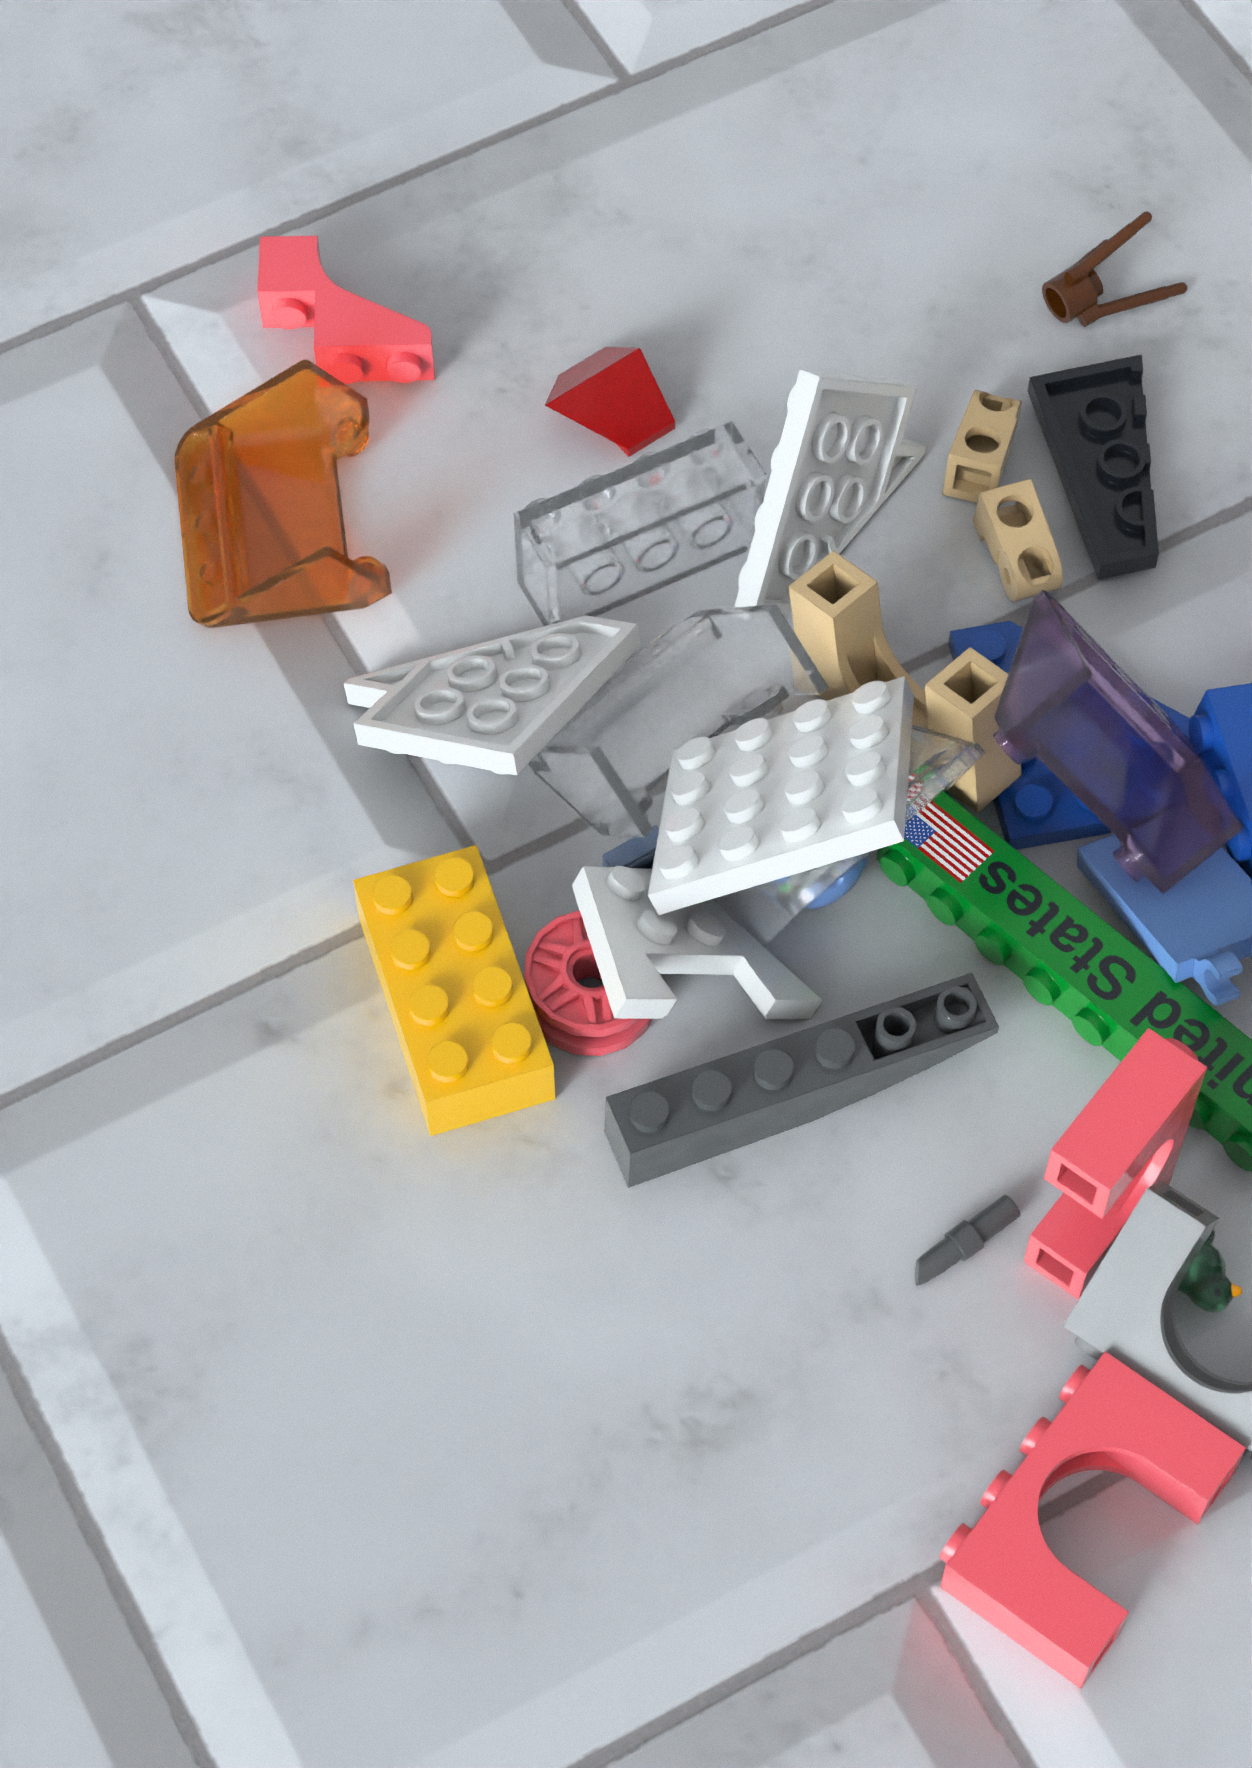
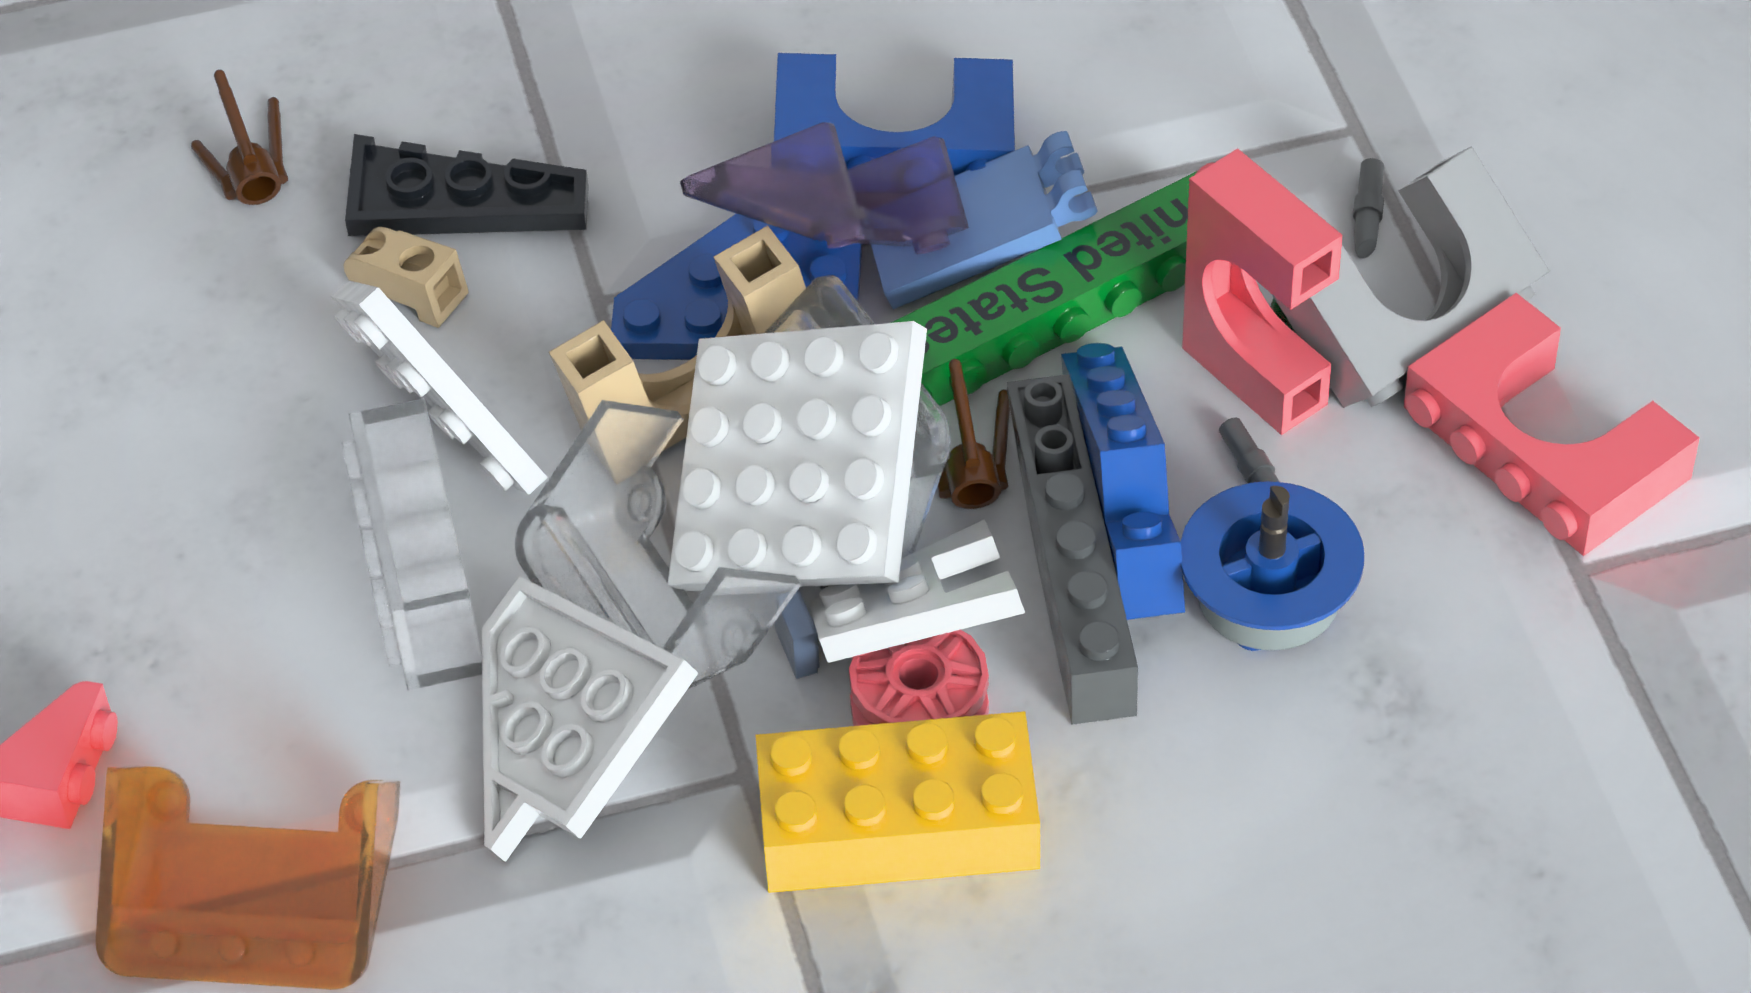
camera: 75 degrees left, 10 degrees down
(614, 398) = (211, 554): red slope -> none
(803, 1255) = (1271, 563): none -> blue piece
(876, 972) = (972, 473): none -> reddish brown plant
(888, 1097) = (1129, 479): none -> blue arch
(1019, 540) = (531, 268): tan leg -> none

